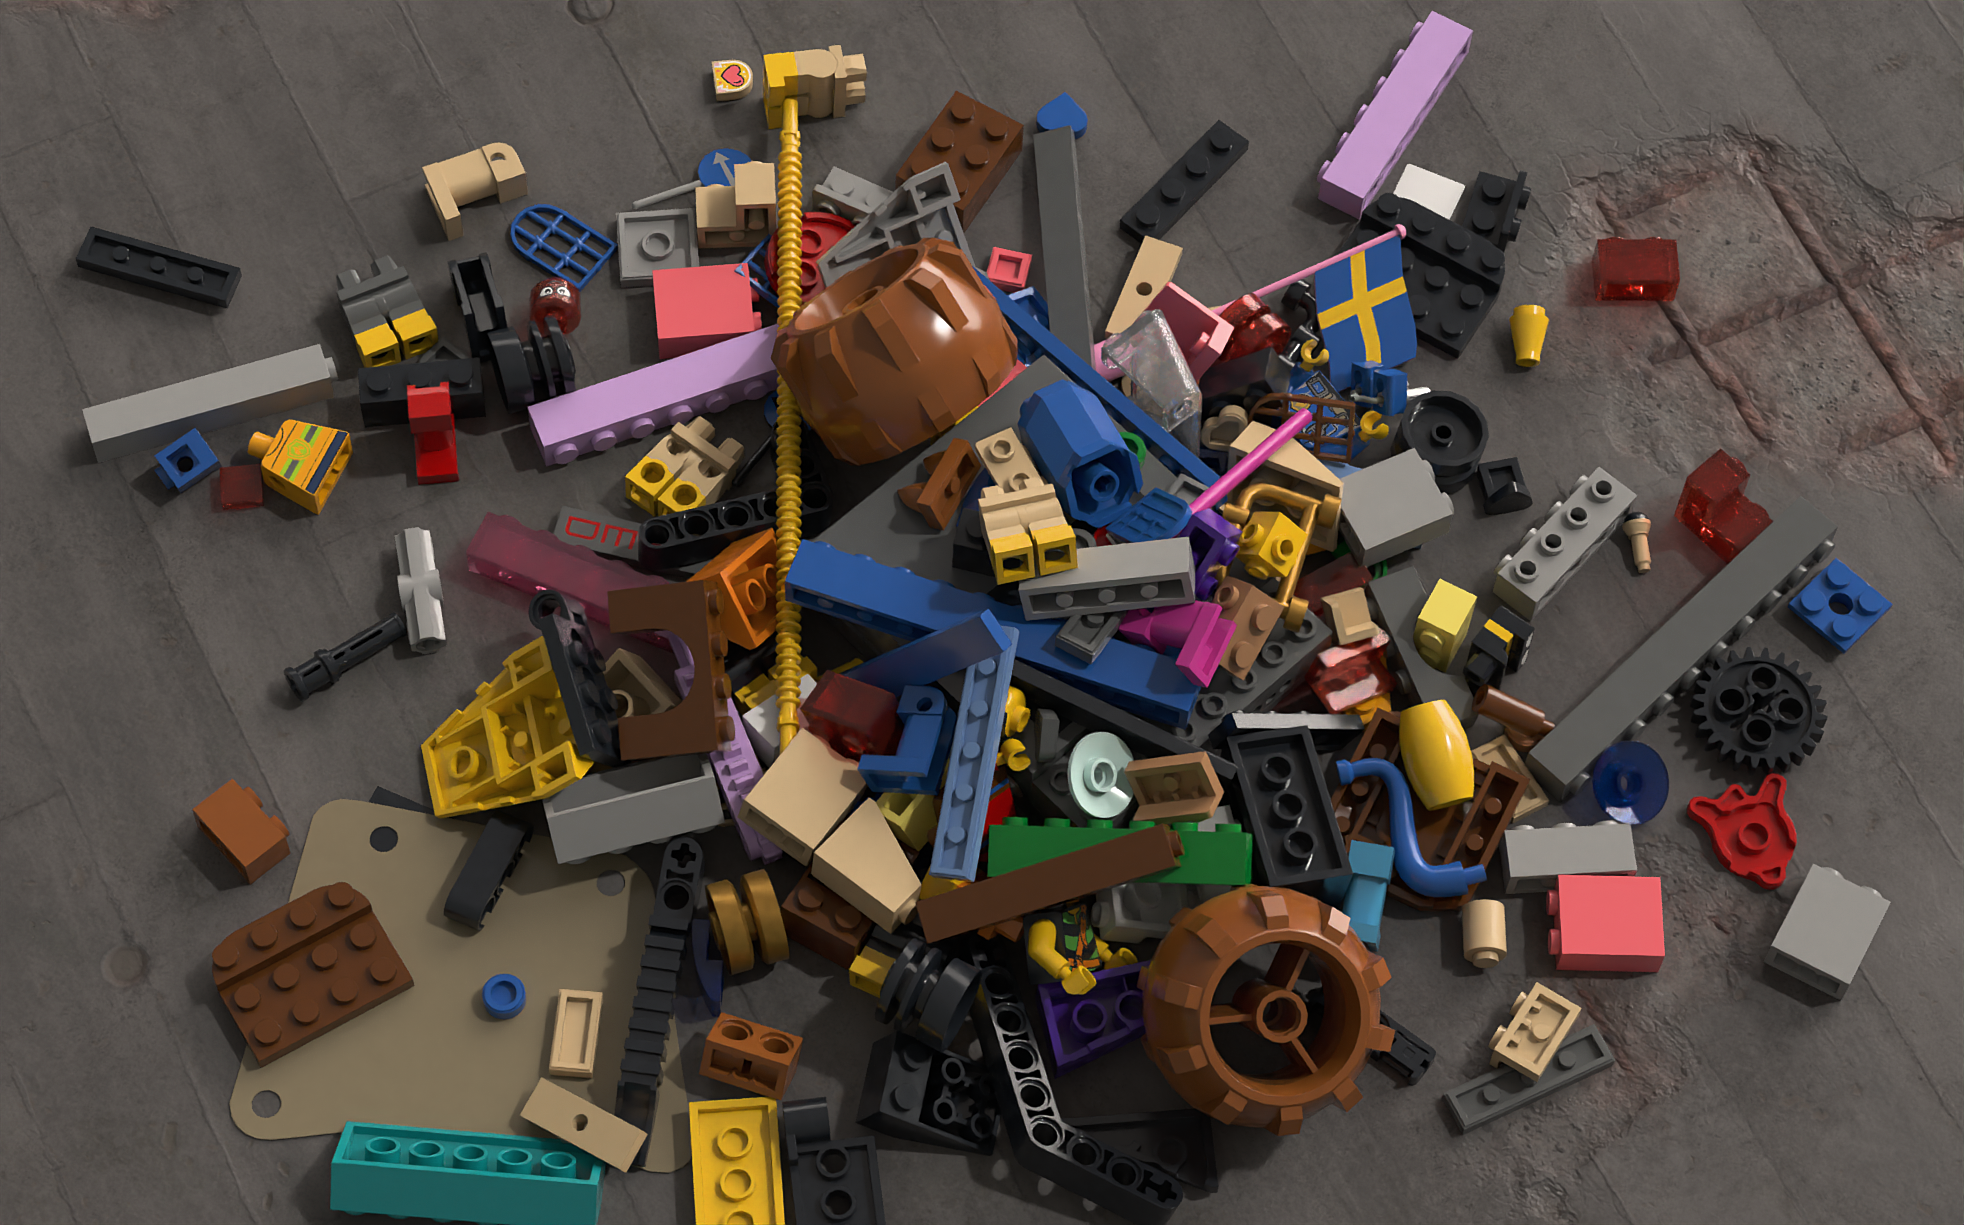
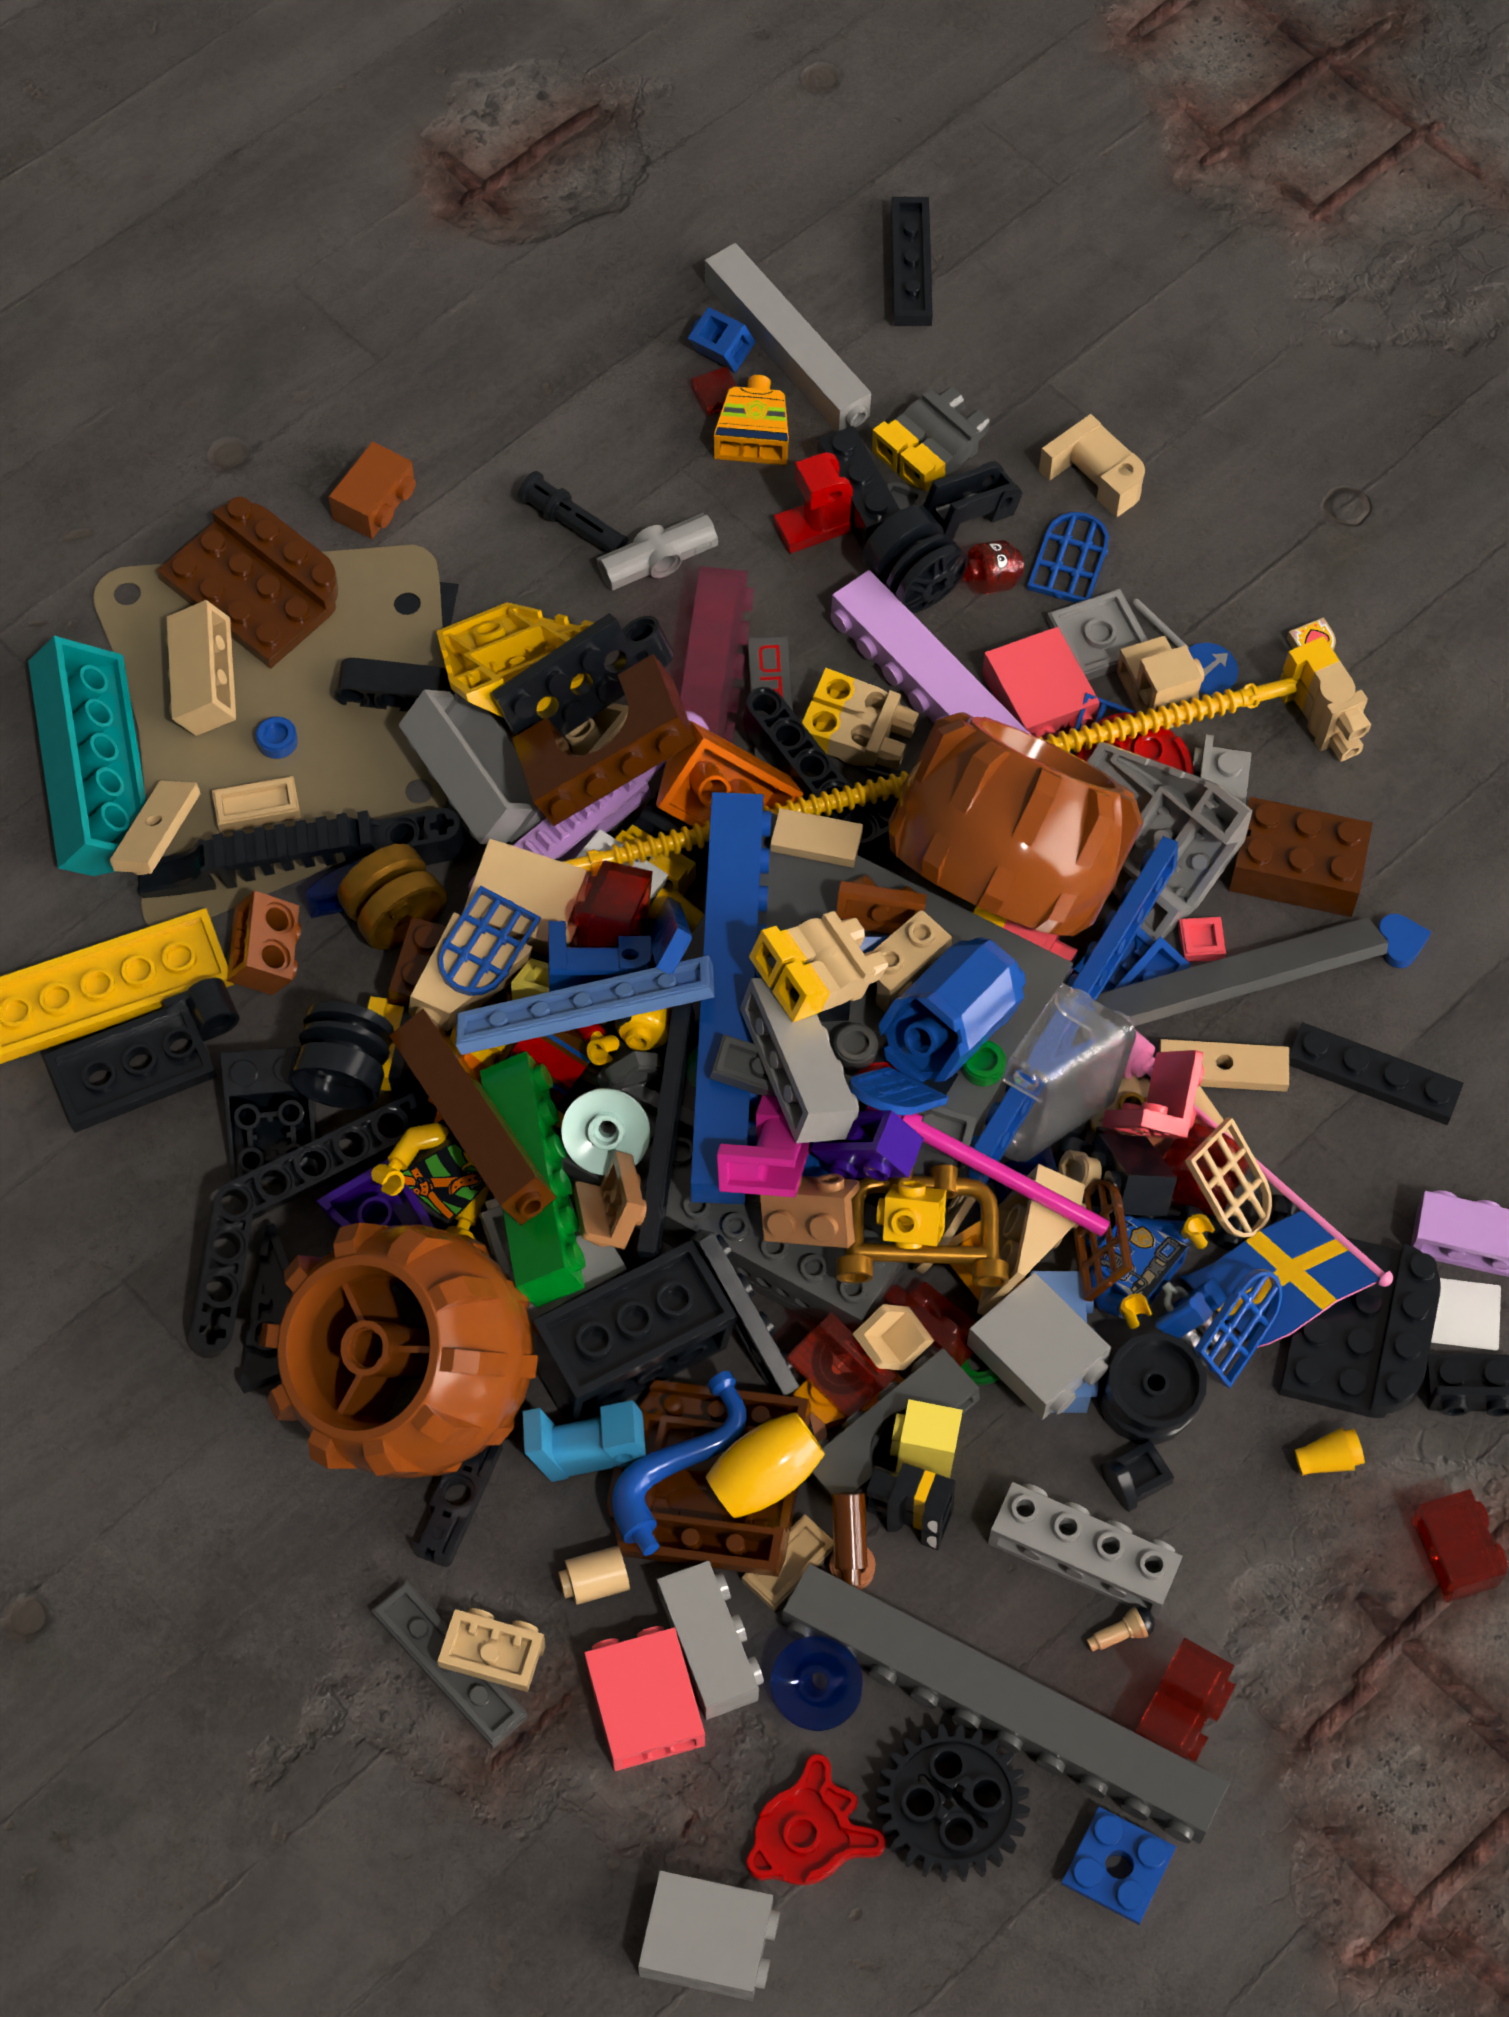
camera: 75 degrees right, 0 degrees up
(405, 1042) = (200, 668): none -> tan brick
(841, 832) = (482, 927): none -> blue window
(849, 514) = (816, 837): none -> tan tile
(1284, 301) = (1263, 1212): none -> tan window
(1406, 352) = (1273, 1294): none -> blue window

